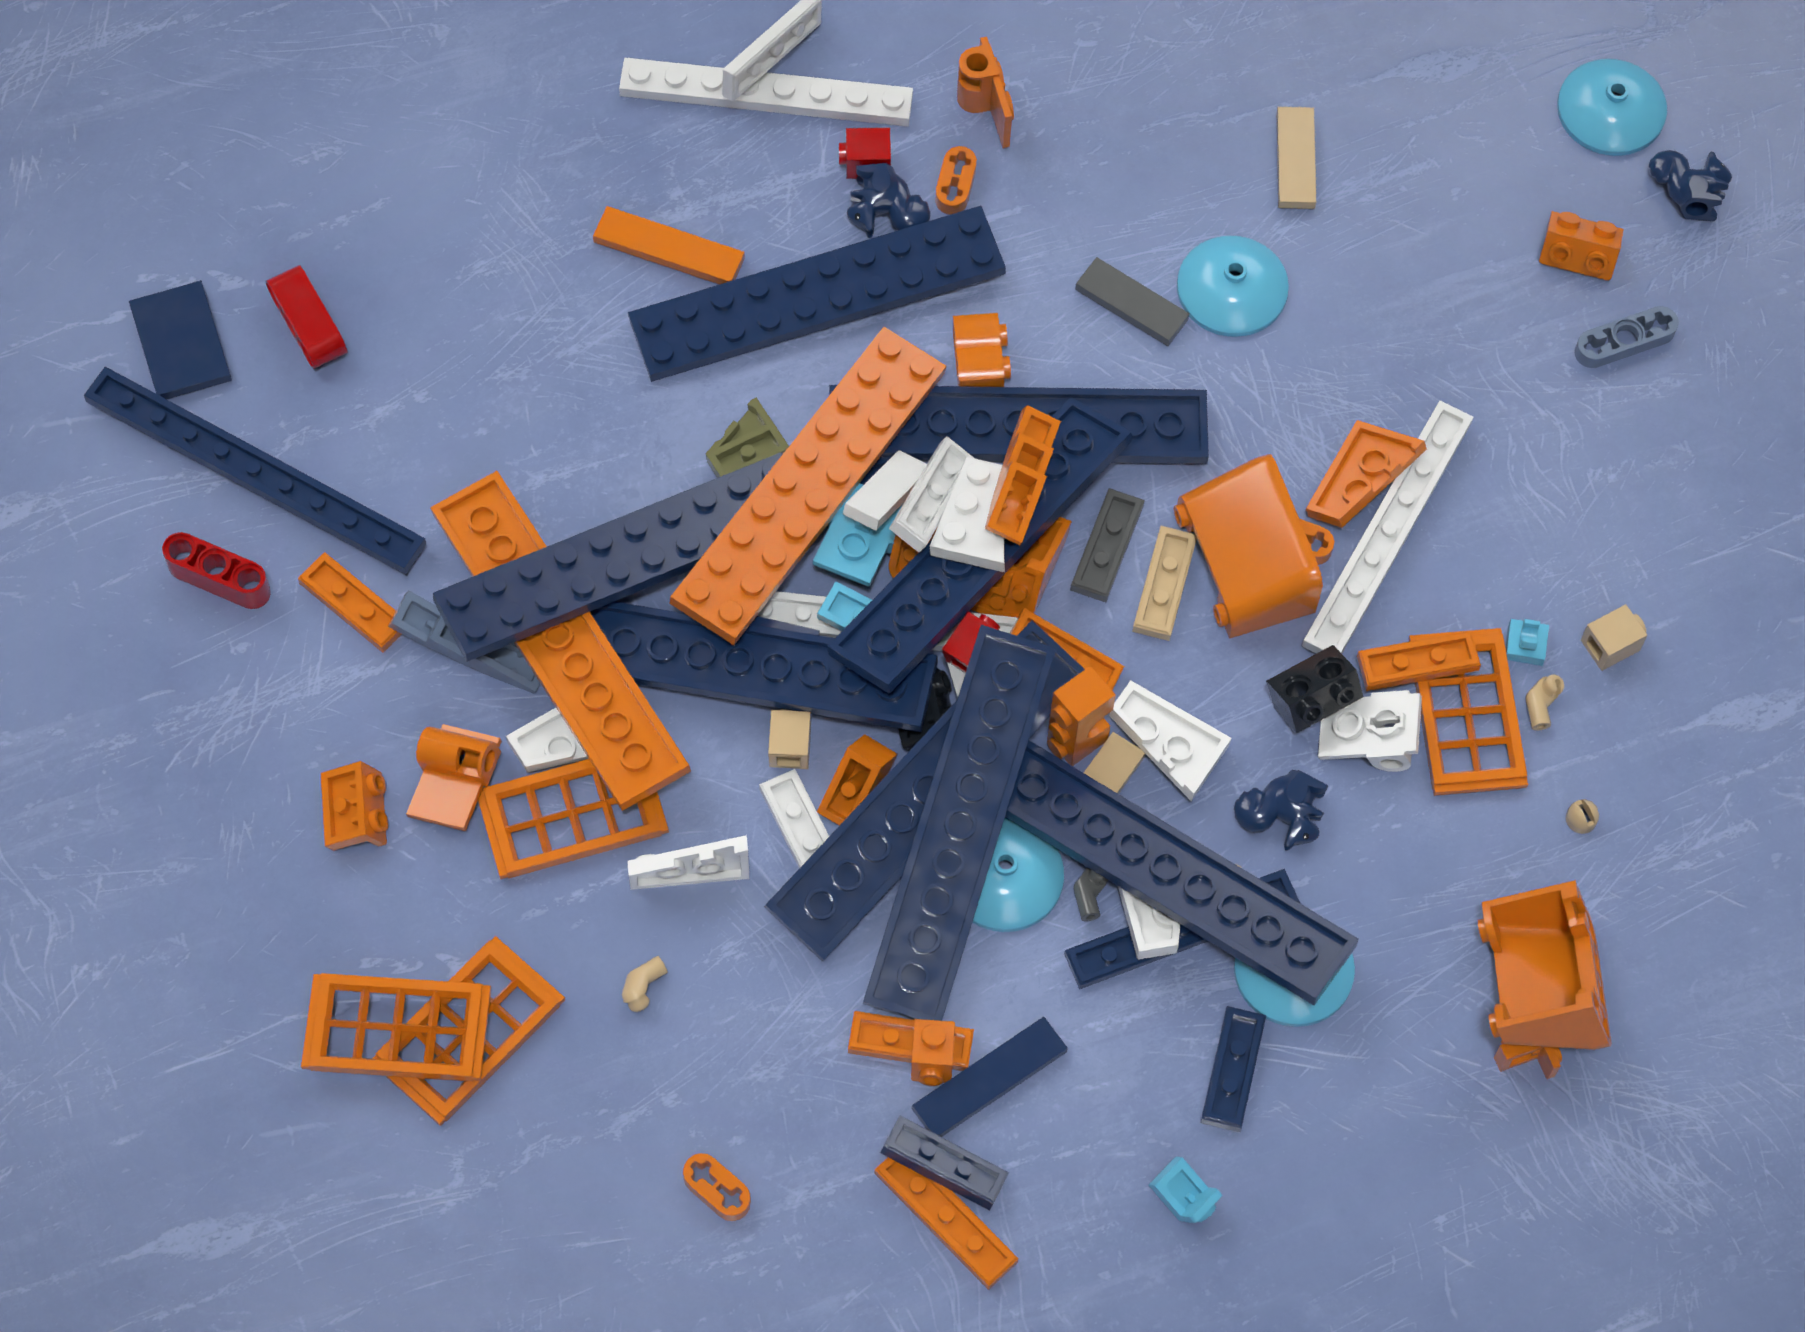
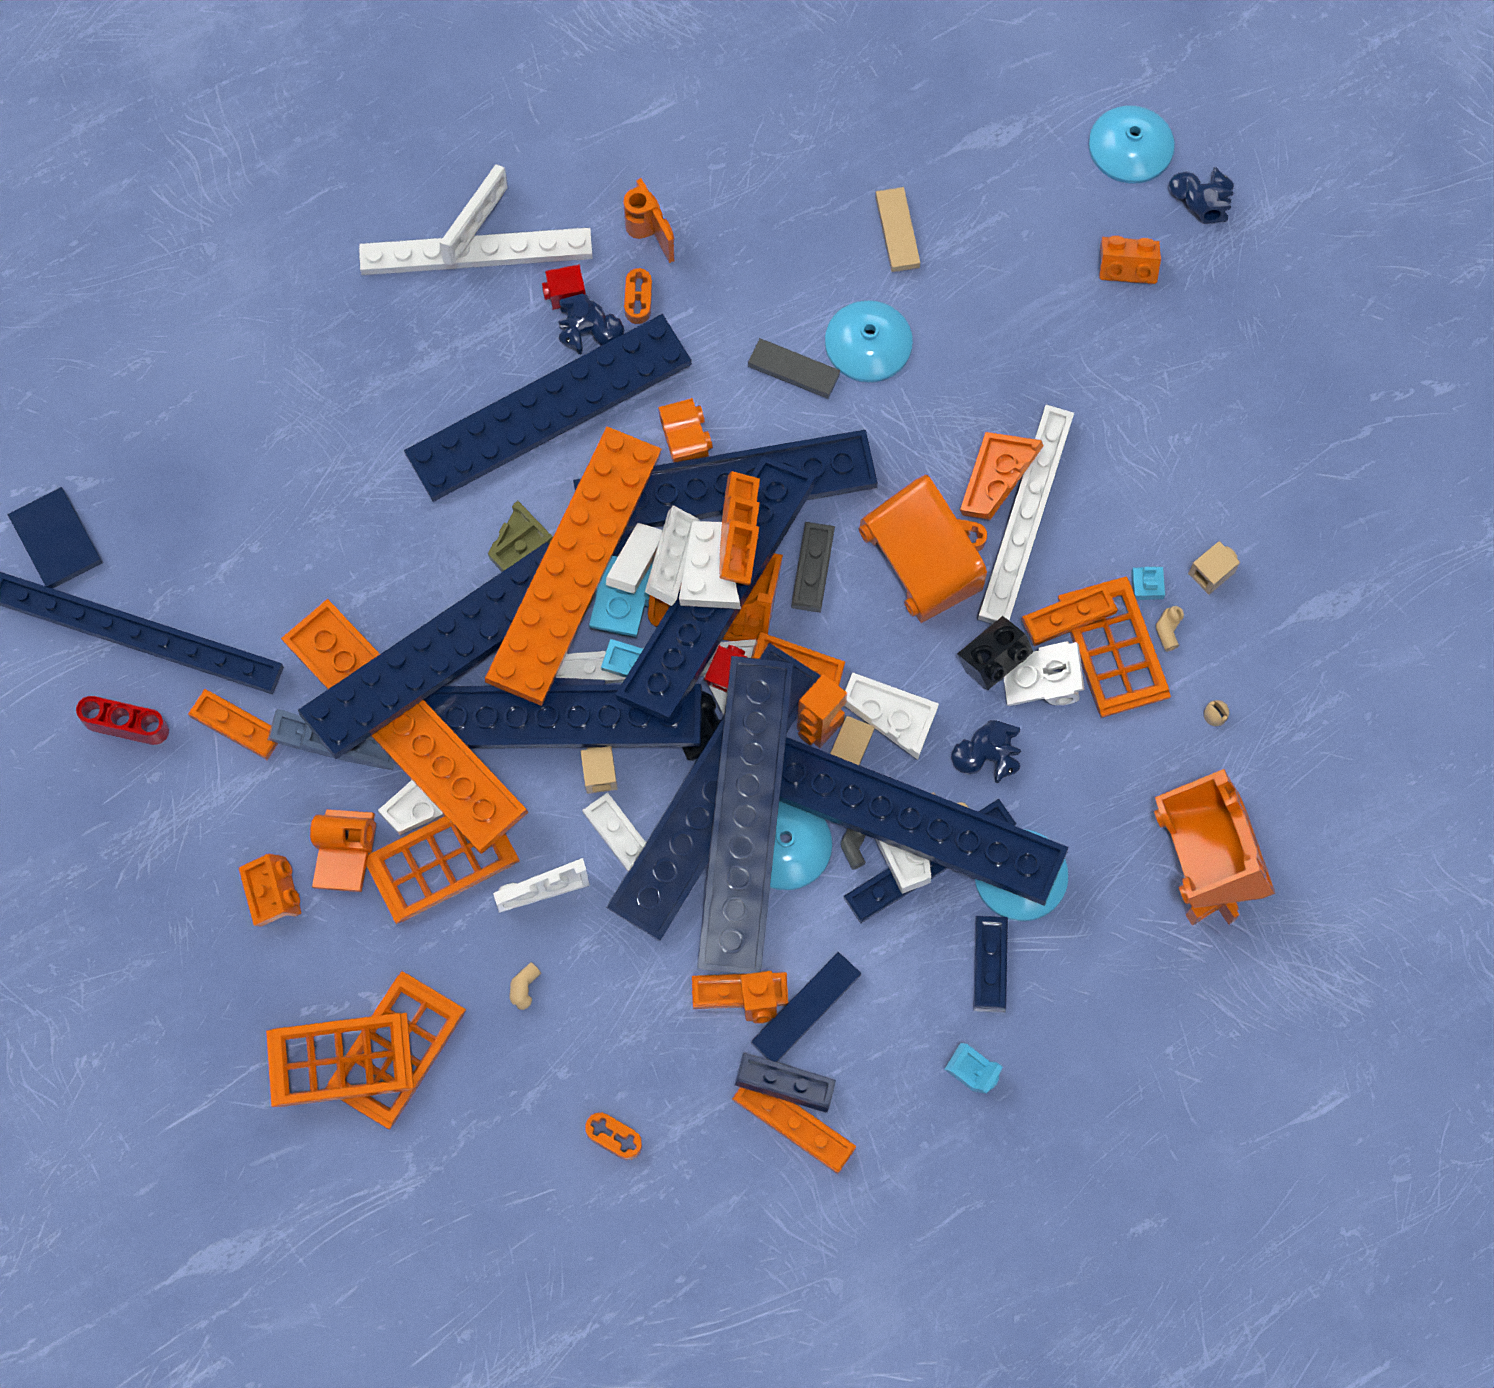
camera: 10 degrees left, 5 degrees up
(306, 316) = (151, 501): red beam -> none
(668, 246) = (424, 390): orange tile -> none
(858, 773) = (657, 791): orange slope -> none
(1164, 583) = (863, 589): tan tile -> none
(1637, 325) = (1183, 315): sand blue beam -> none

